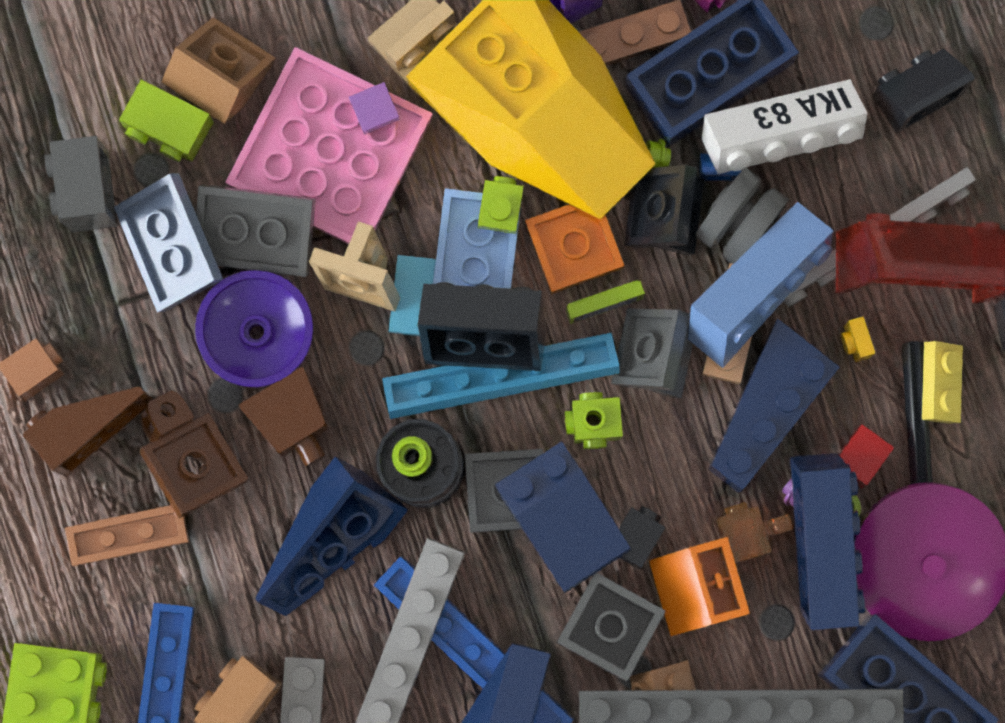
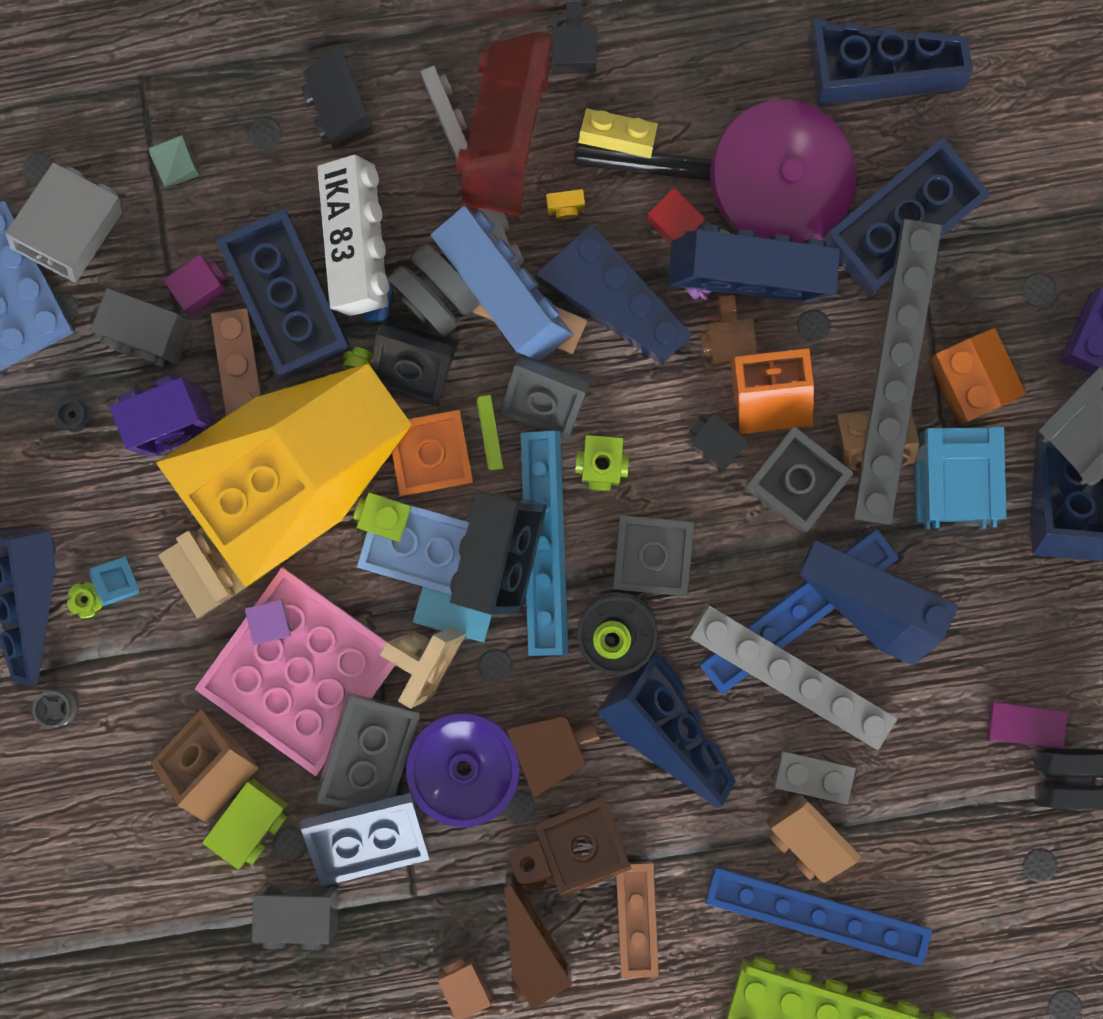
camera: 80 degrees left, 5 degrees up
(563, 517) = (692, 506): dark blue slope -> none

